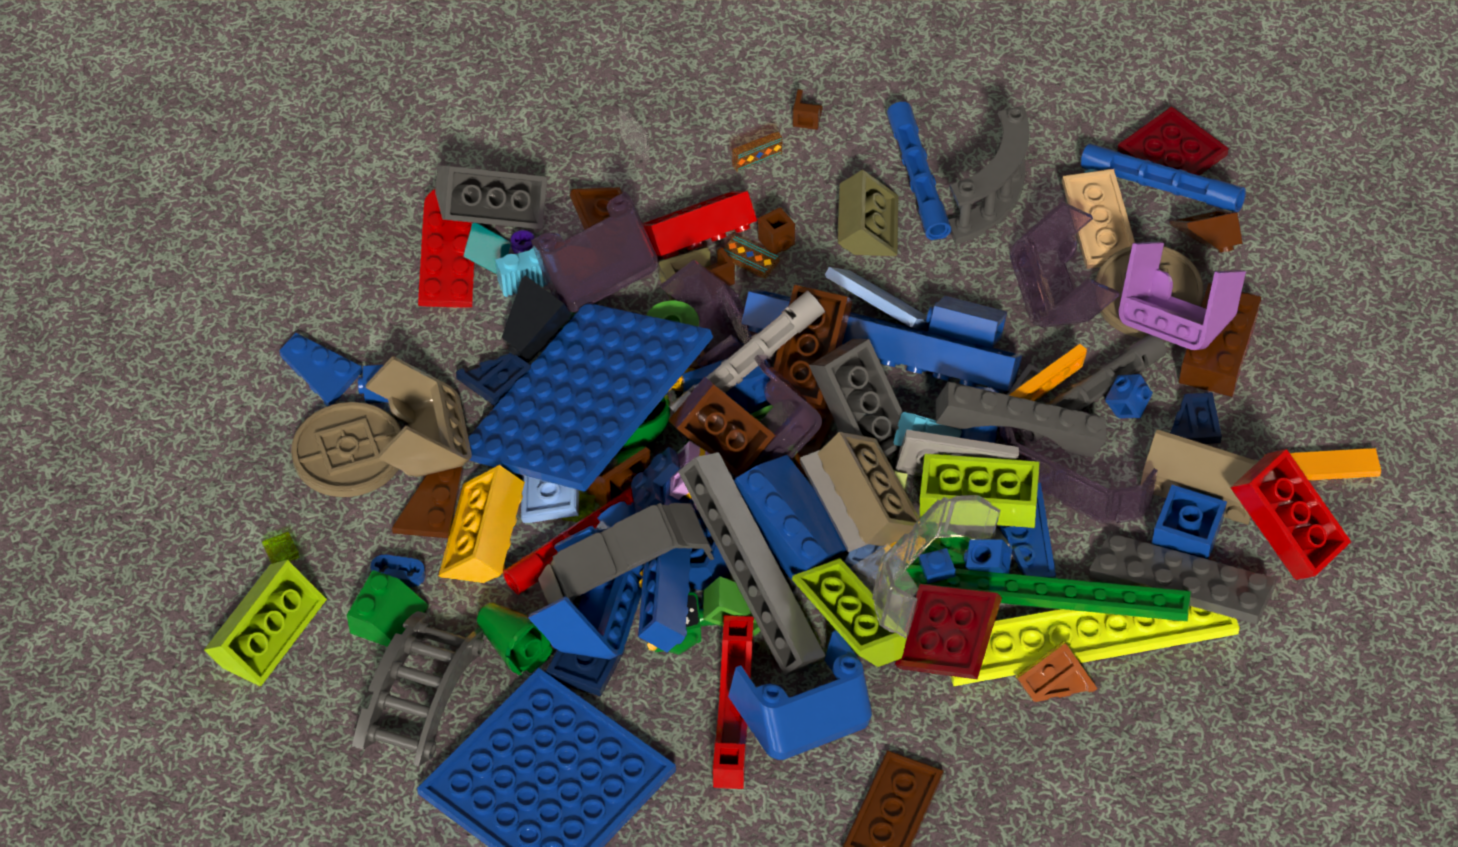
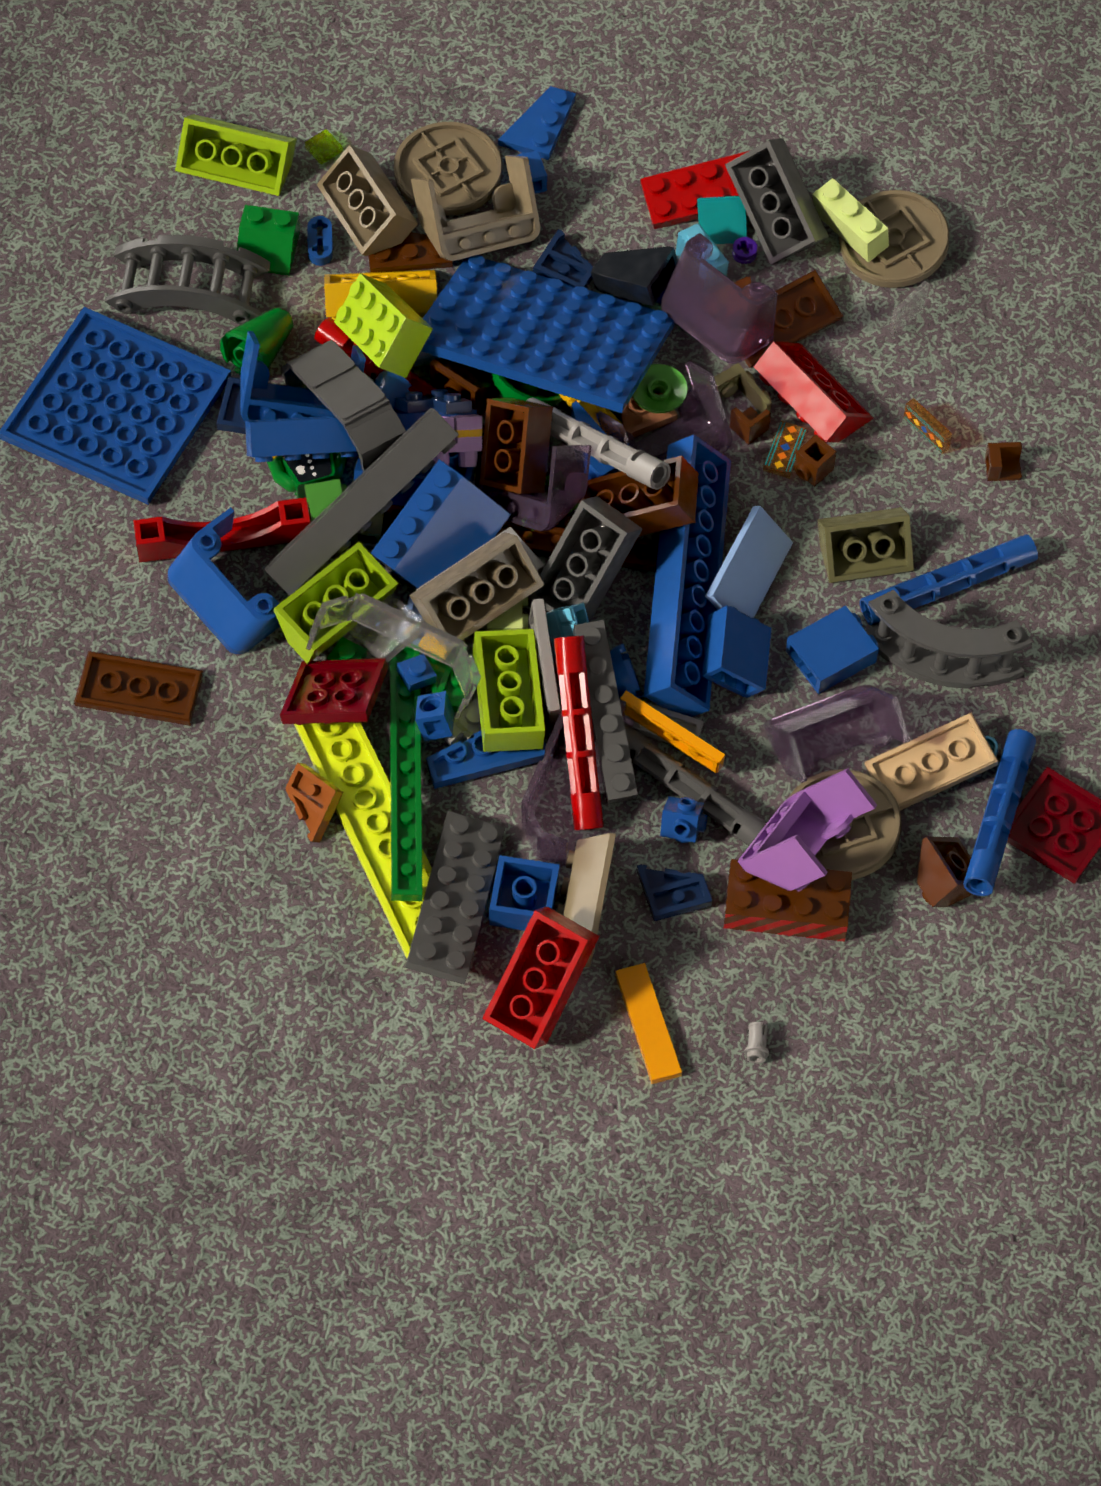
camera: 75 degrees right, 10 degrees up
(373, 517) = (366, 202): none -> dark tan slope
(529, 150) = (851, 220): none -> yellowish green brick
(547, 134) = (916, 240): none -> dark tan plate
(551, 508) = (382, 325): none -> lime brick
(972, 261) = (832, 649): none -> blue brick
(1044, 438) = (578, 732): none -> red piece
(1352, 390) = (757, 1038): none -> light grey pin

